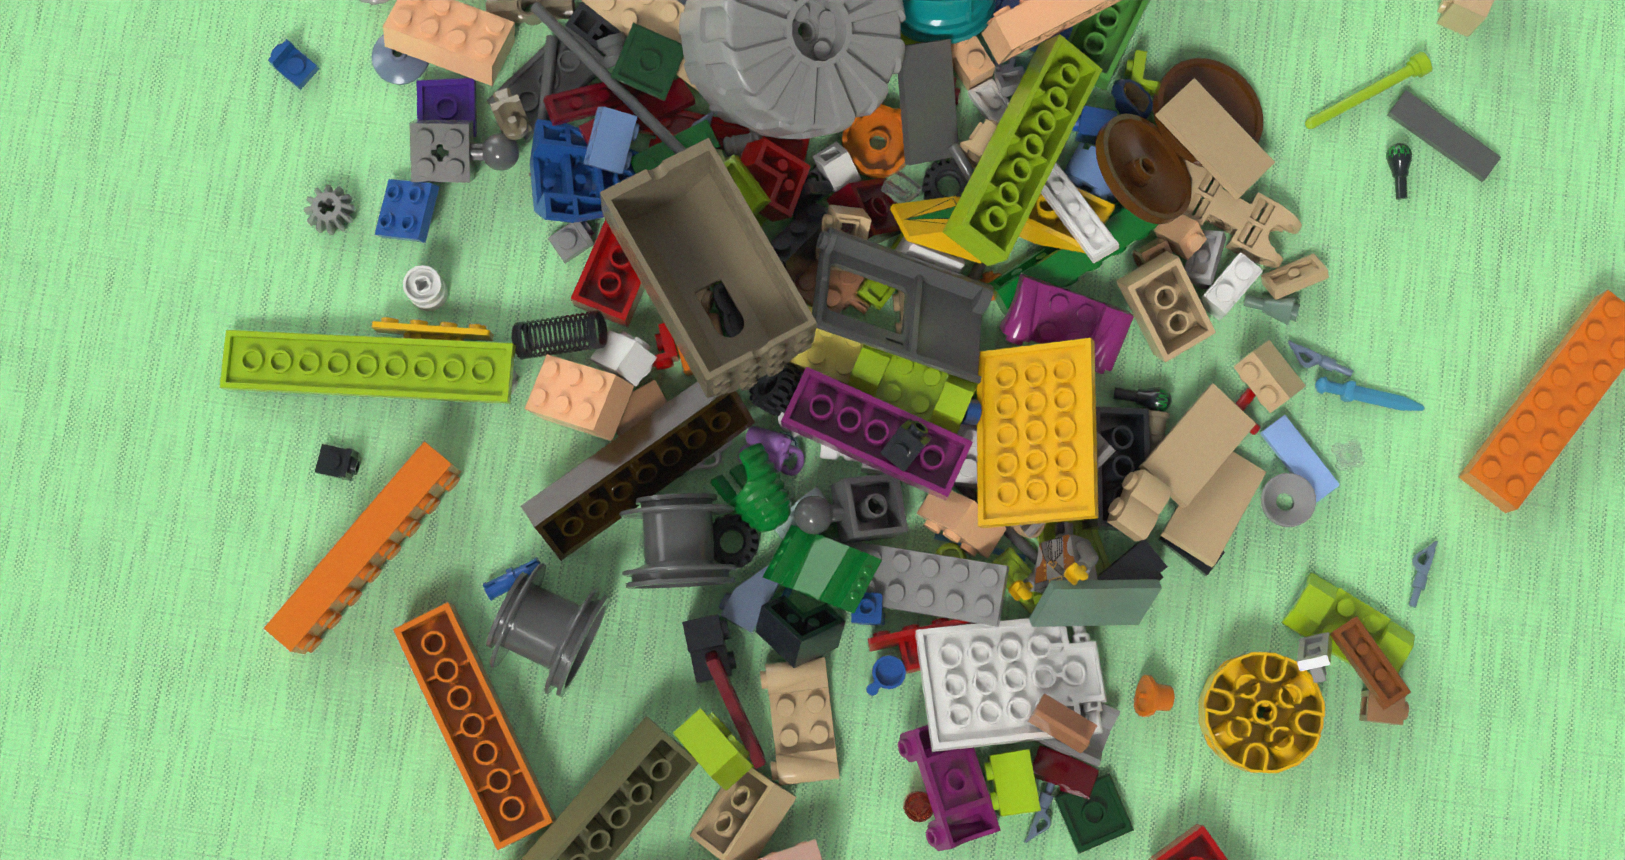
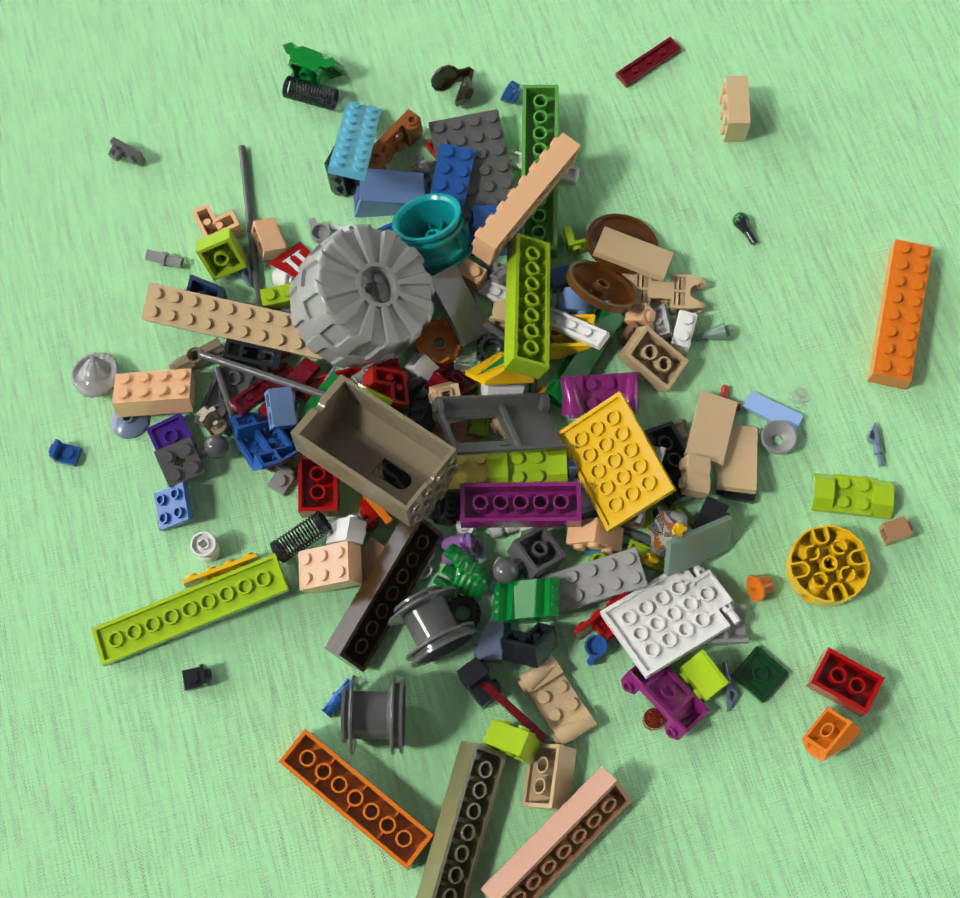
camera: 20 degrees left, 10 degrees down
(329, 199) = (129, 532): light grey gear -> none
(363, 550) = (237, 722): orange brick -> none
(612, 48) = (257, 355): dark grey wheel -> none
(648, 61) = (283, 353): dark green tile -> none
(869, 610) = (566, 614): blue bracket -> none
(906, 444) = (542, 500): black bracket -> none
(1062, 723) = (715, 625): nougat panel -> none
(1065, 771) = (734, 656): dark red slope -> none
(1131, 98) = (573, 253): dark blue rock -> none
(1152, 398) = (672, 414): black piece -> none
(1269, 376) = (731, 372): tan brick -> none
(1294, 276) = (716, 311): tan plate -> none
(1315, 654) = (841, 515): light grey hinge -> none
(1318, 359) = (753, 351): sand blue hand -> none
(1349, 391) = (781, 361): dark azure sword -> none
(1370, 663) = (875, 506): dark orange plate -> none
(1418, 65) = (725, 168): lime piece -> none
(1444, 136) = (760, 199): dark grey tile -> none

